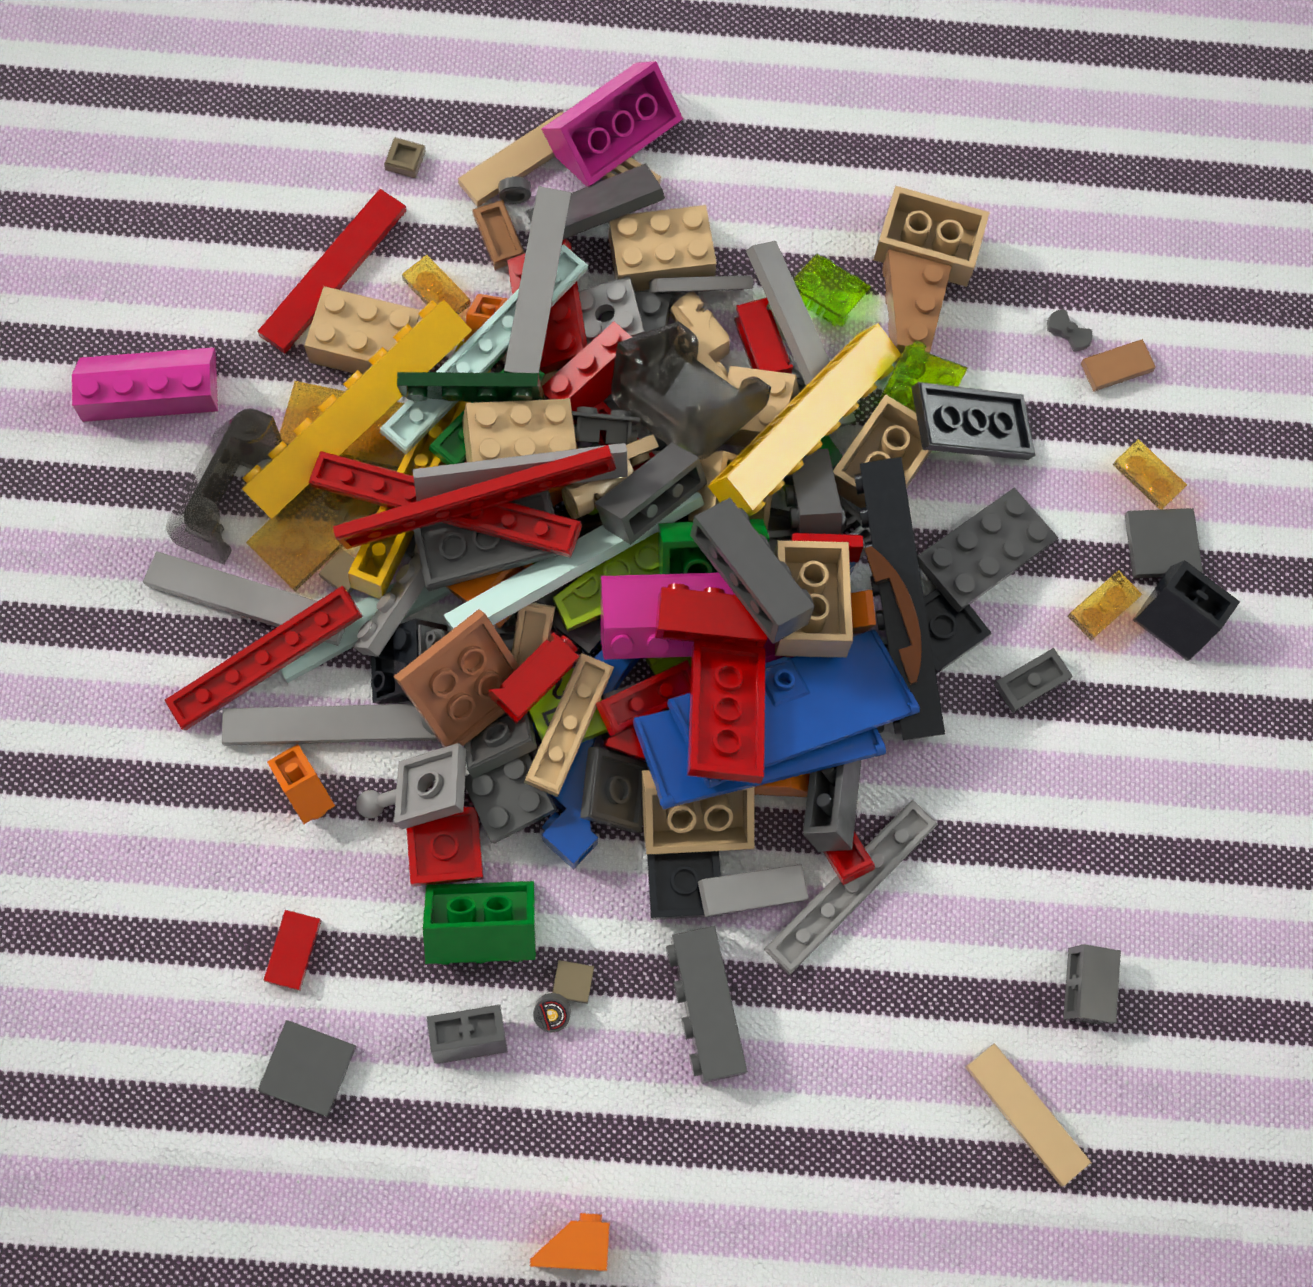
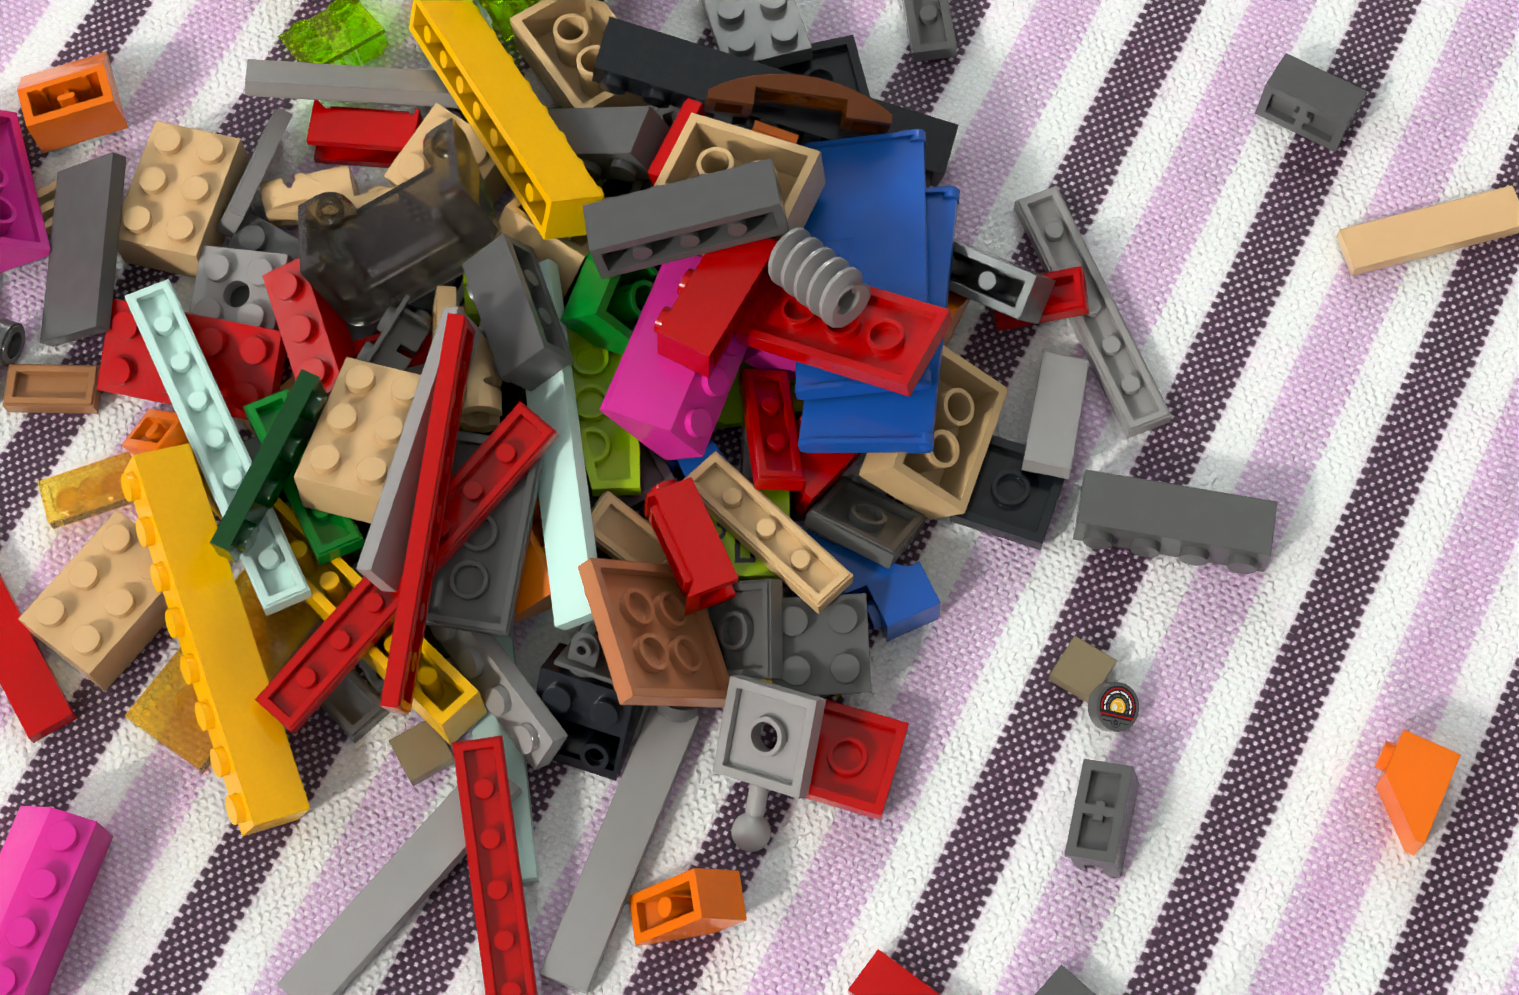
camera: 55 degrees left, 5 degrees down
(237, 442) = (254, 908): clear smoke windscreen -> none
(303, 534) = (348, 773): clear yellow tile -> none
(479, 922) = (965, 749): green slope -> none
(537, 281) = (163, 342): light grey tile -> none
(703, 146) = (71, 103): none -> orange slope
(748, 677) = (818, 278): none -> light grey piece

